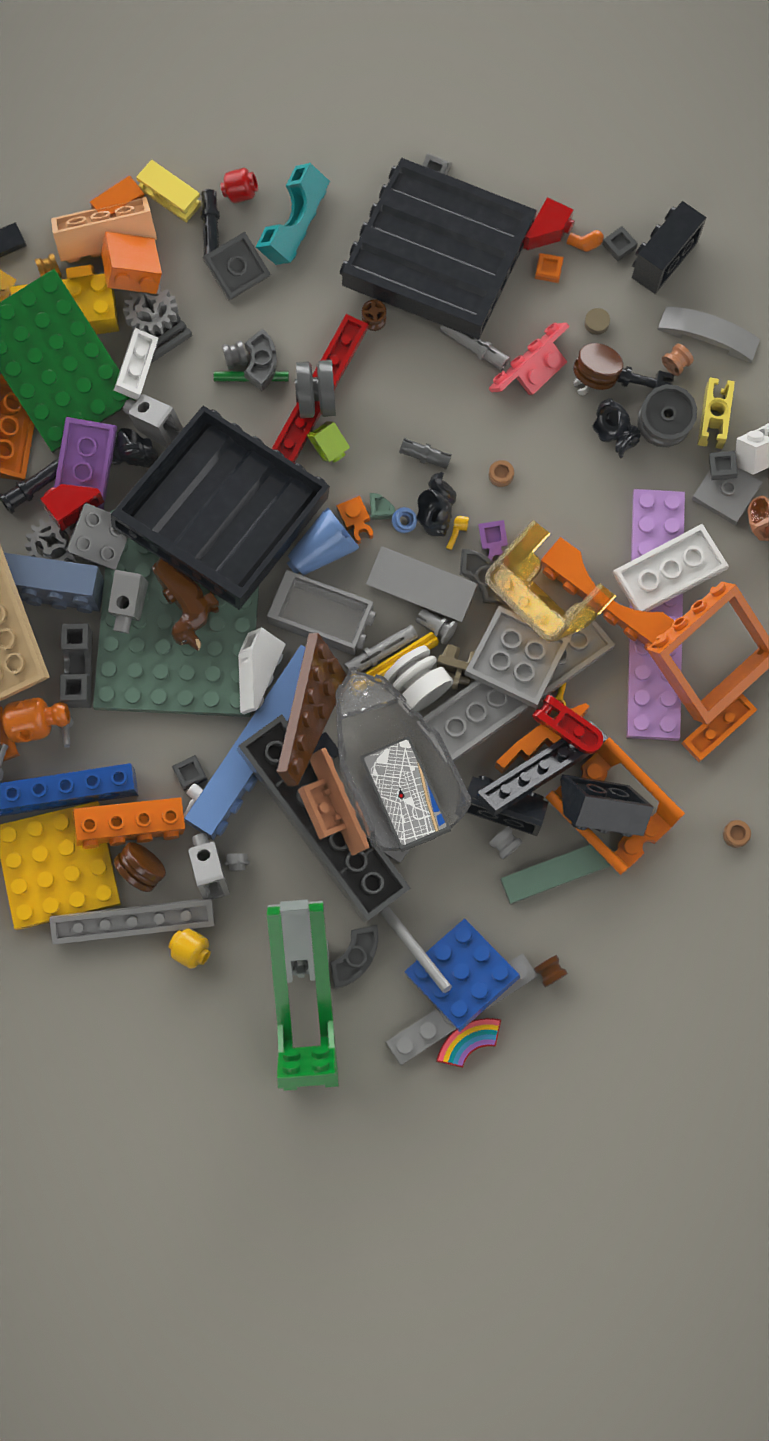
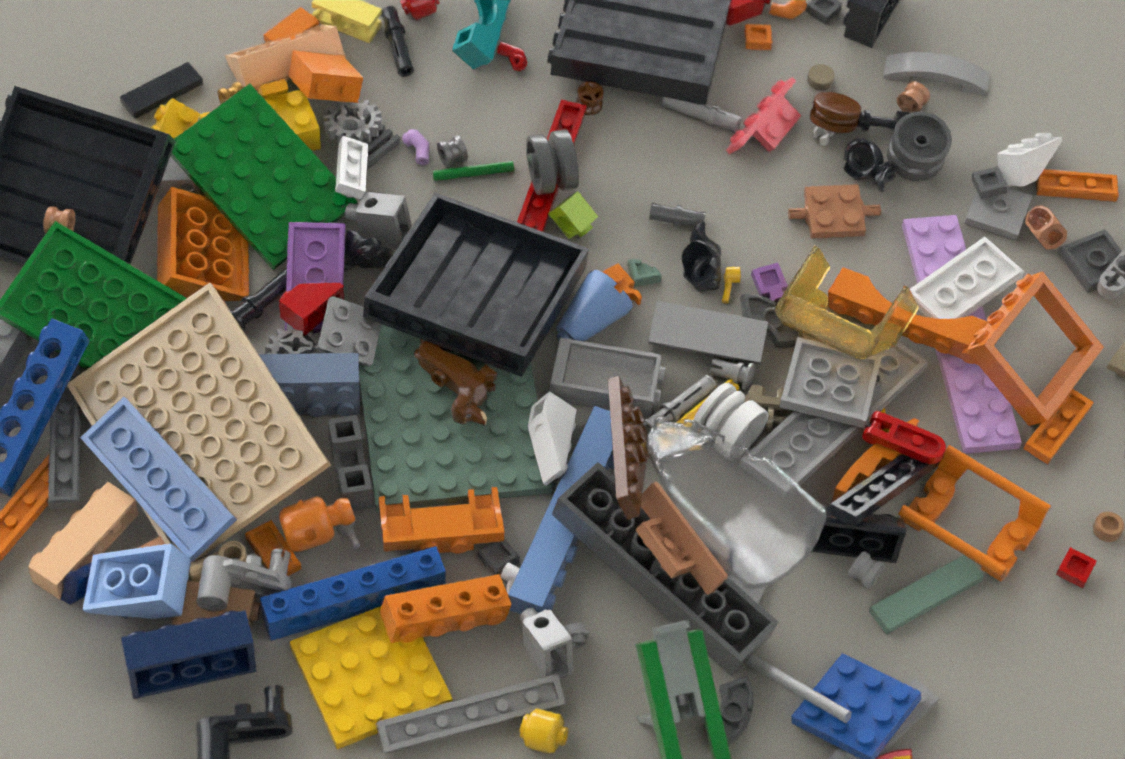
camera: 15 degrees left, 20 degrees down
(127, 588) = (395, 383): light grey torso -> none
(139, 867) = (469, 652): reddish brown head -> none
(143, 742) = (446, 527): none -> orange bracket
(208, 340) = (422, 146): none -> lavender arm
(236, 266) = (434, 72): dark grey tile -> none
(263, 360) = (483, 152): dark grey tile -> none
(317, 257) = (516, 56): none -> red arm
(405, 794) = (760, 540): tile -> none
(409, 515) = (676, 275): medium blue plate -> none
(501, 473) = (761, 225): medium nougat tile -> none
(550, 971) = (952, 689): reddish brown wheel -> none
(572, 470) = (834, 211): none -> nougat plate
(604, 806) = (966, 511): black slope -> none
(695, 871) = (1076, 567): none -> red plate
(721, 405) = (966, 139): light yellow piece -> none

